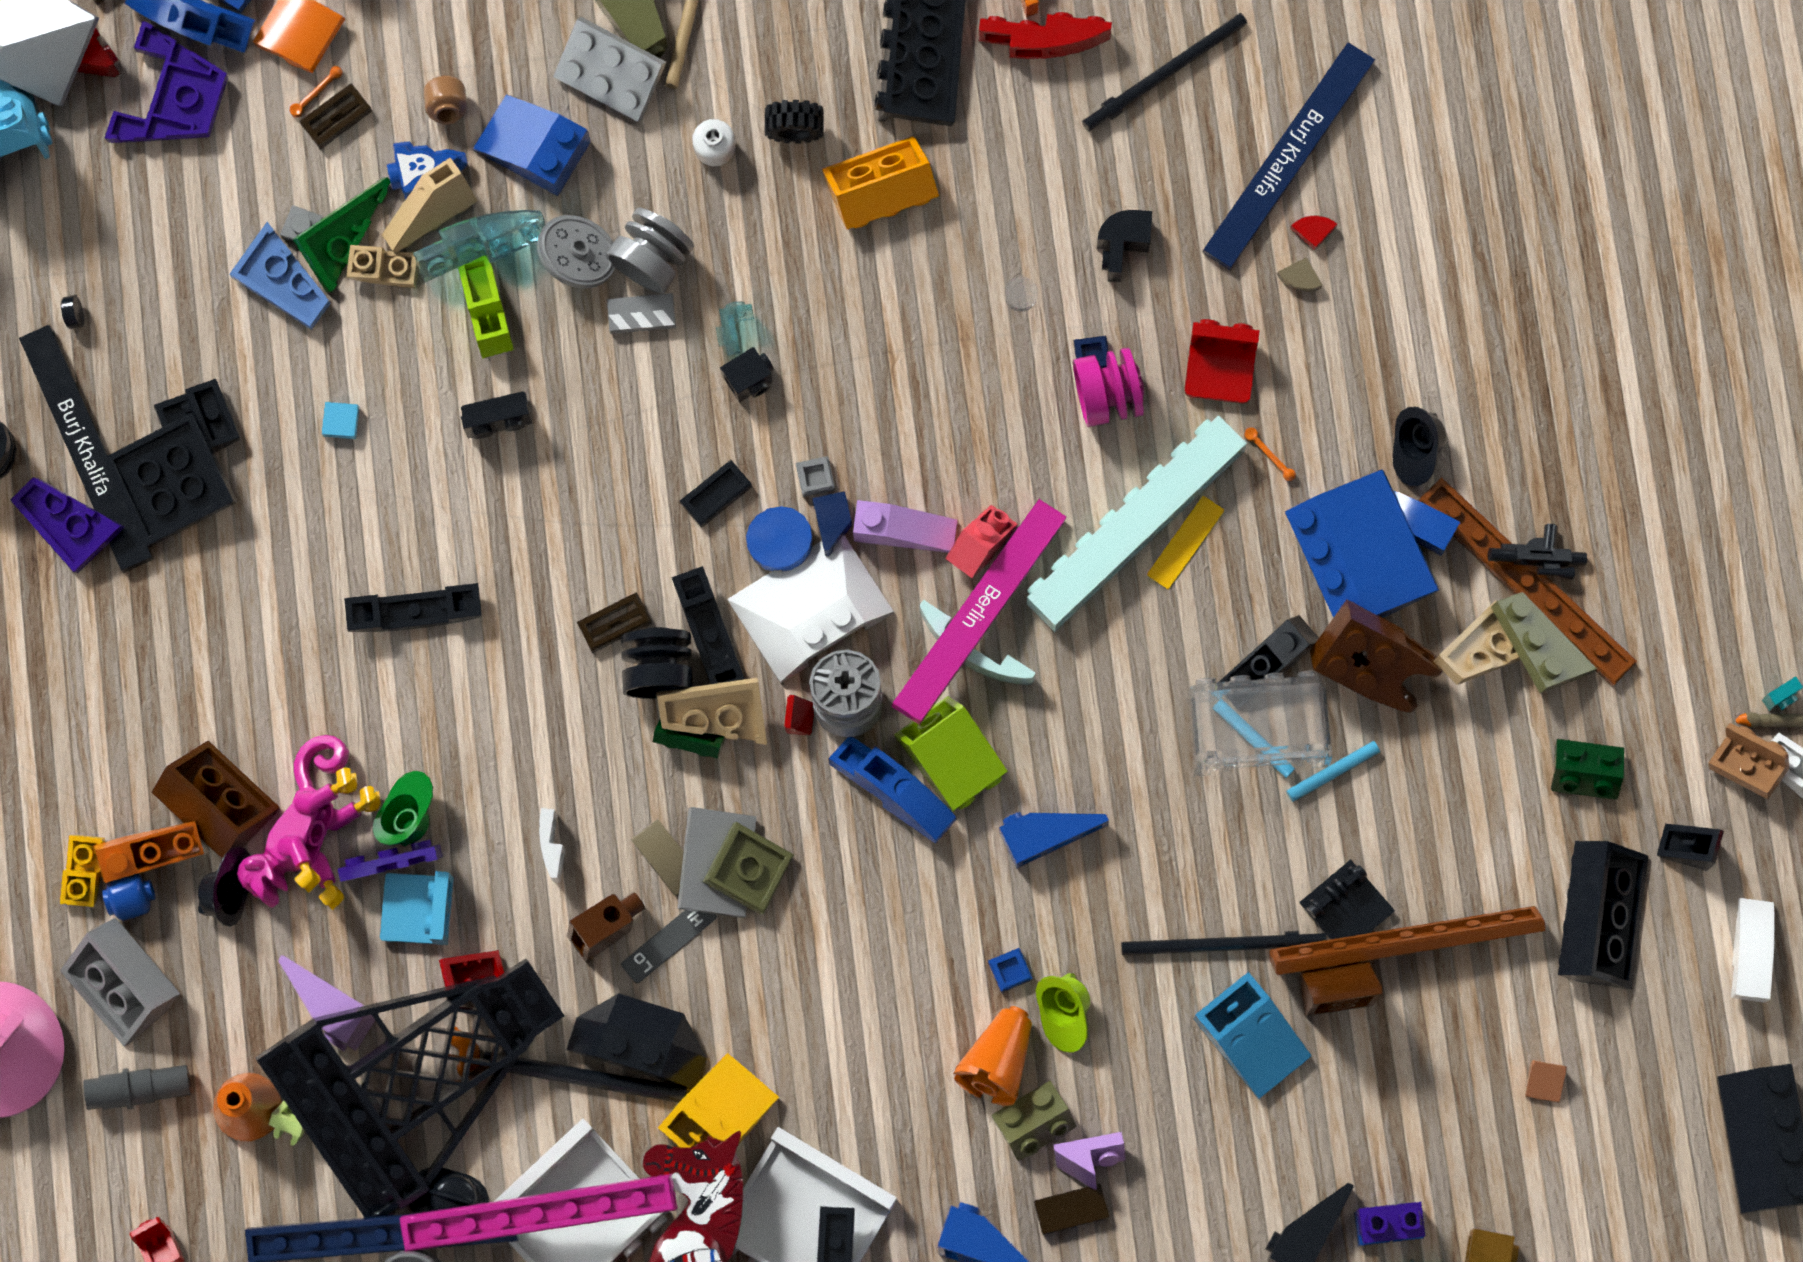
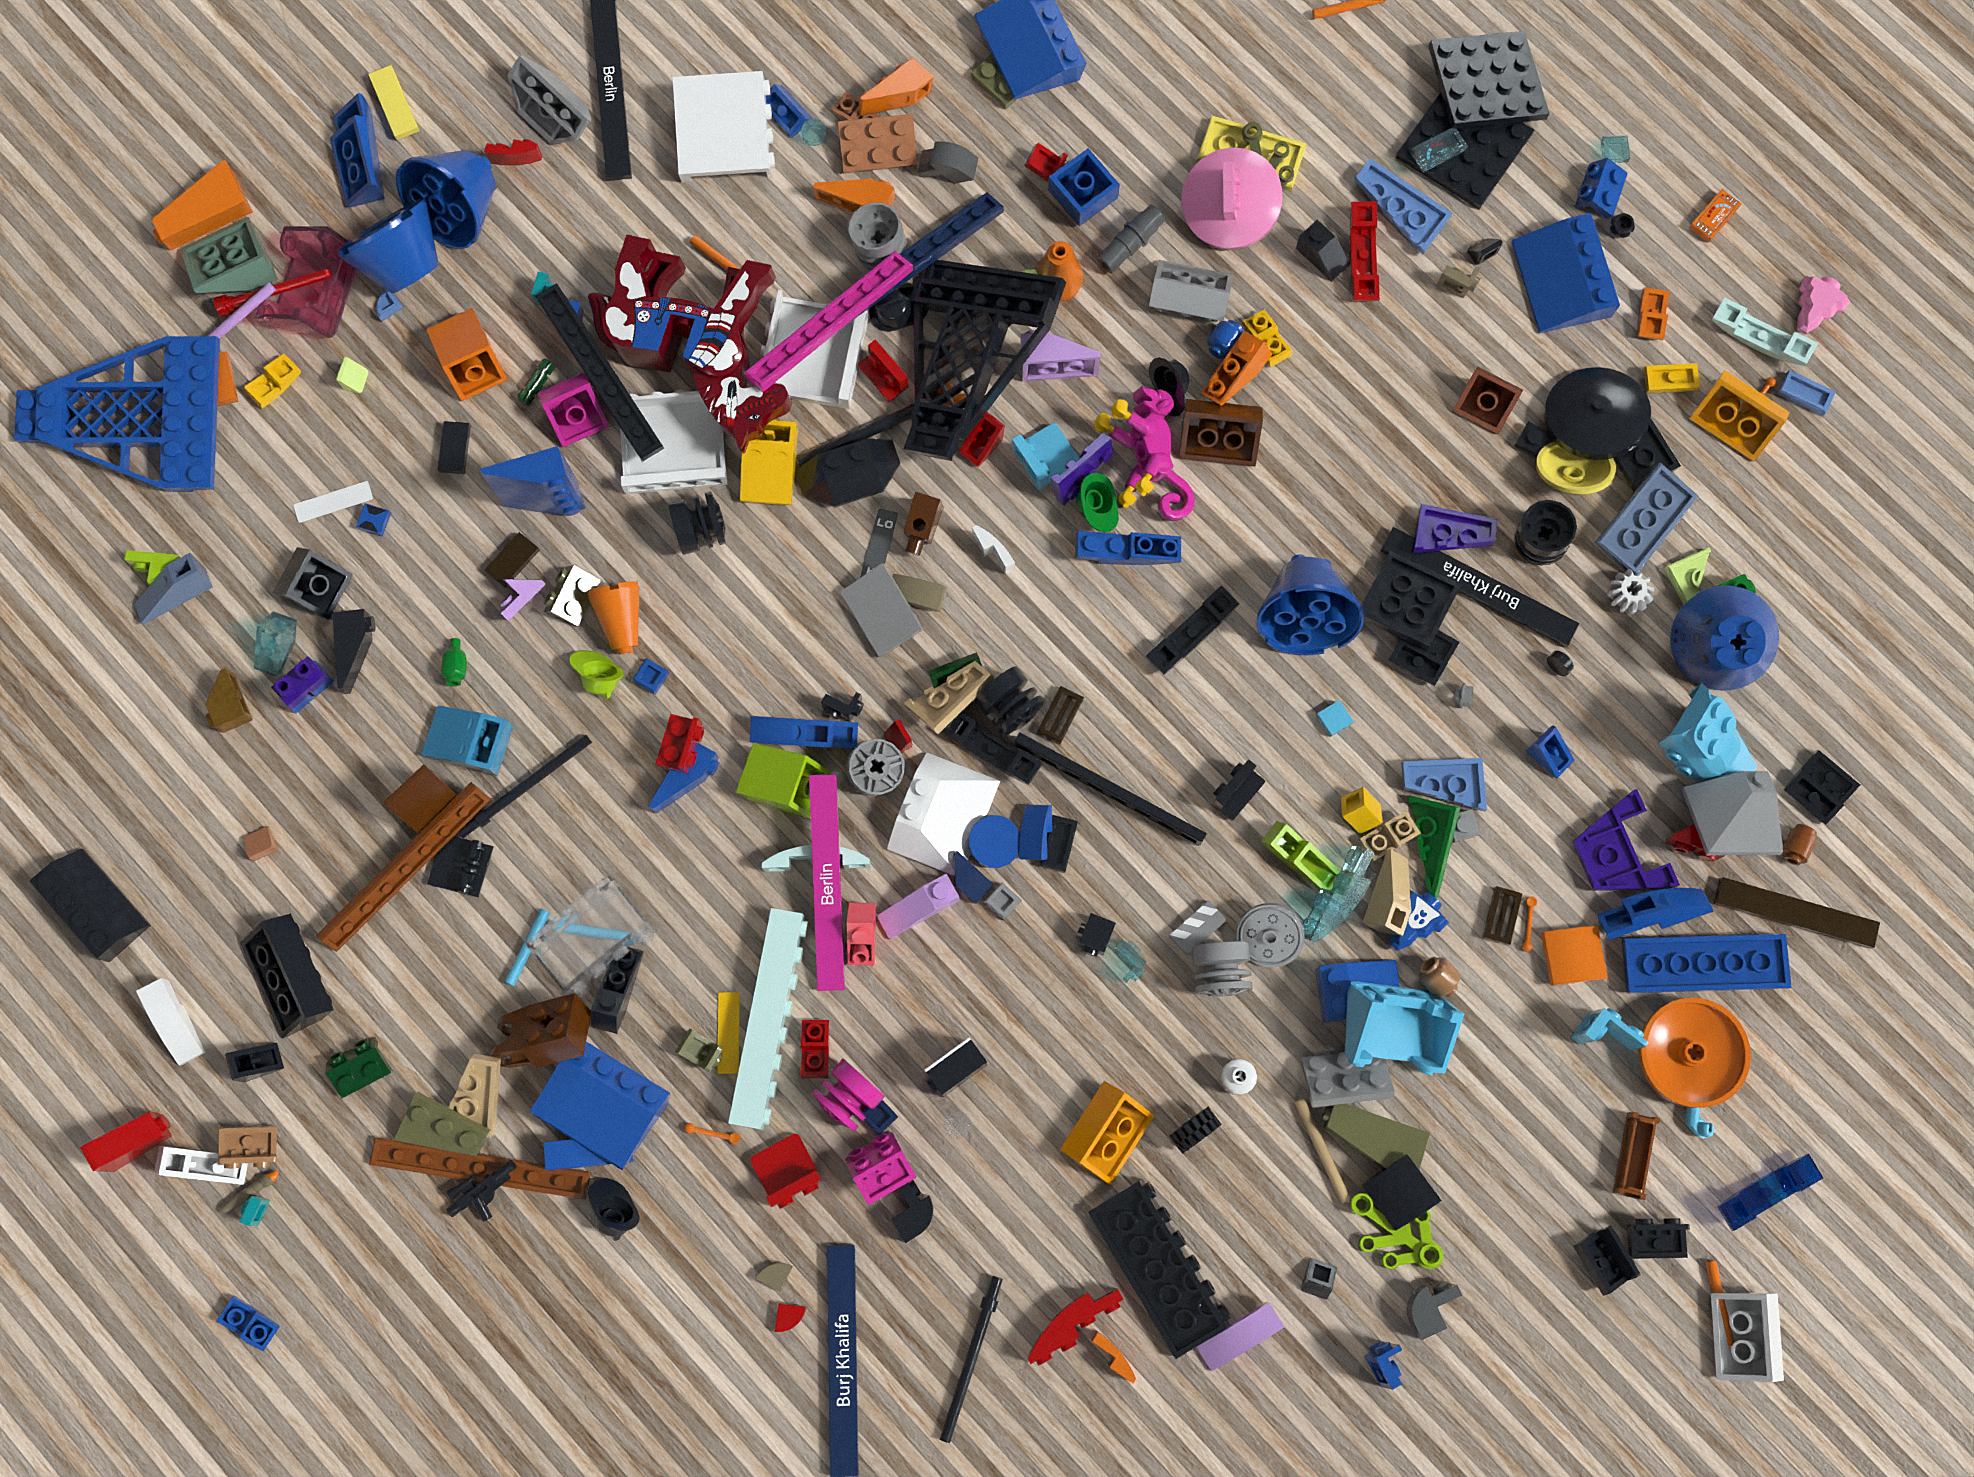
camera: 140 degrees right, 0 degrees up
(141, 1182) = (1083, 187): none -> blue brick
(156, 234) = (1551, 752): none -> blue slope
(194, 349) = (1464, 695): none -> light grey plate
(276, 539) = (1309, 609): none -> blue cone
(389, 310) = (1361, 810): none -> yellow panel
(410, 742) = (1128, 549): none -> blue slope
(518, 78) = (1400, 1026): none -> medium azure windscreen
(520, 1128) = (883, 372): none -> red bracket
(623, 508) = (1110, 789): none -> black tile
(732, 518) = (1033, 834): none -> blue slope
(748, 868) = (859, 620): olive tile -> none
(840, 790) = (835, 708): none -> black bracket
(843, 1094) = (697, 523): none -> black wheel
(984, 339) = (955, 1068): none -> black piece
(1029, 859) = (680, 743): none -> red bracket
(1109, 463) = (815, 1049): none -> red slope
(1126, 300) = (879, 1167): none -> dark pink bracket
(1211, 1133) = (454, 664): none -> green plant
(1225, 538) = (700, 1050): none -> olive bracket

